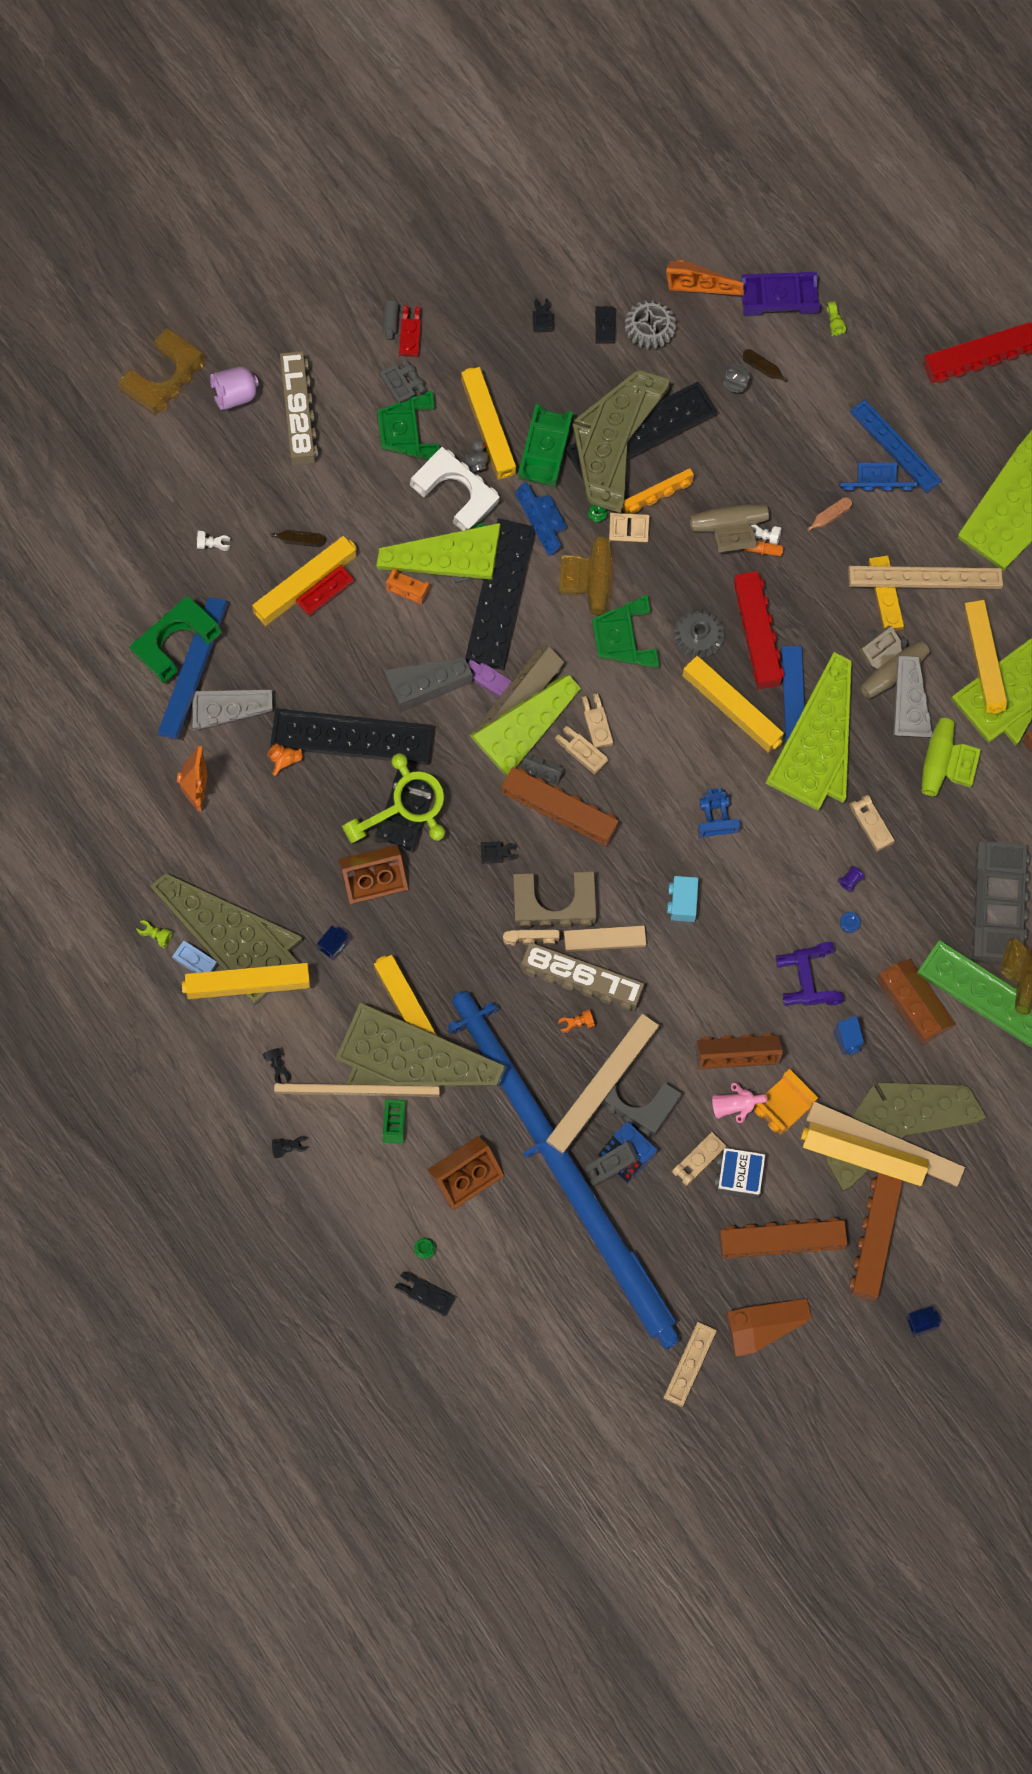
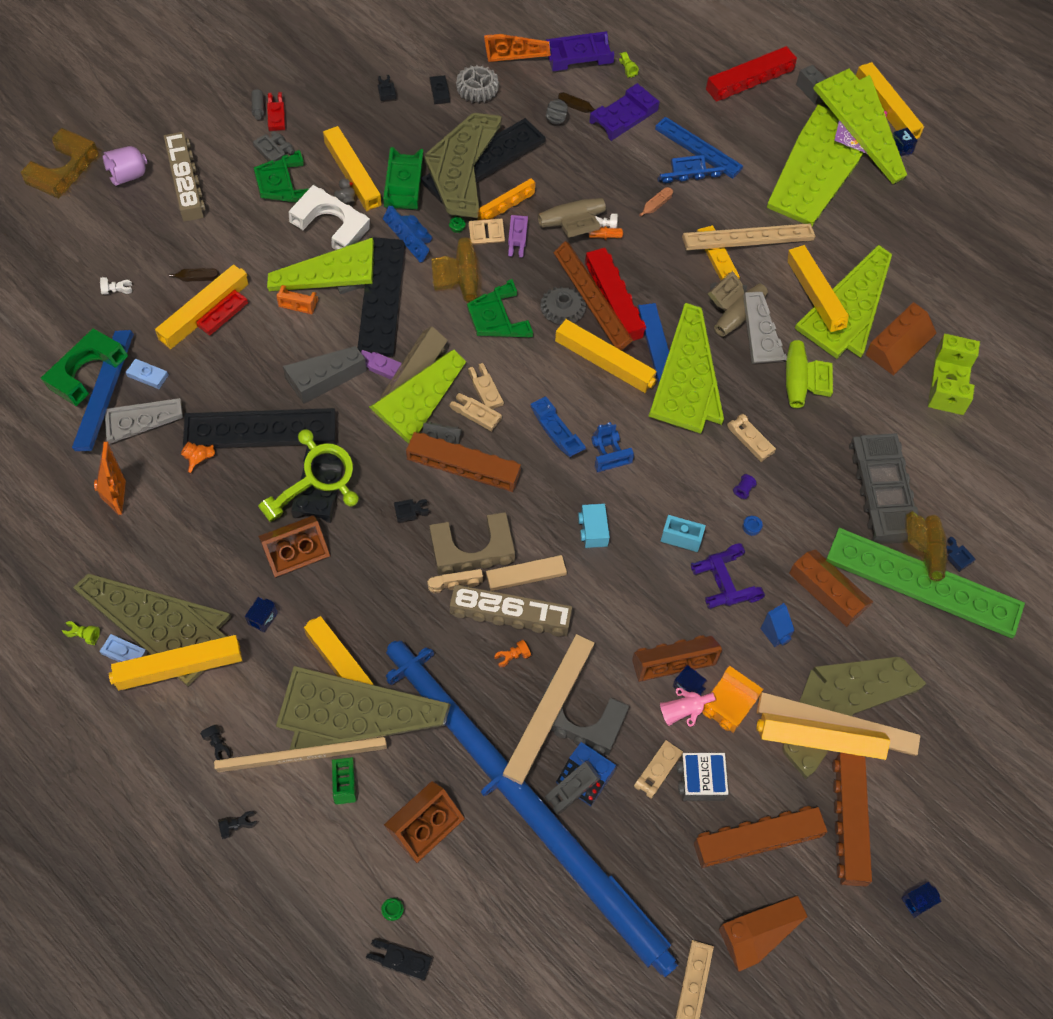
camera: 10 degrees left, 10 degrees down
(238, 653) = (147, 373): none -> light blue plate
(663, 536) = (517, 234): none -> medium lavender hinge
(664, 782) = (555, 428): none -> blue slope
(732, 629) = (593, 296): none -> dark orange tile
(748, 1078) = (690, 681): none -> clear blue brick
(773, 922) = (683, 533): none -> medium azure brick
(818, 386) = (626, 111): none -> dark purple piece

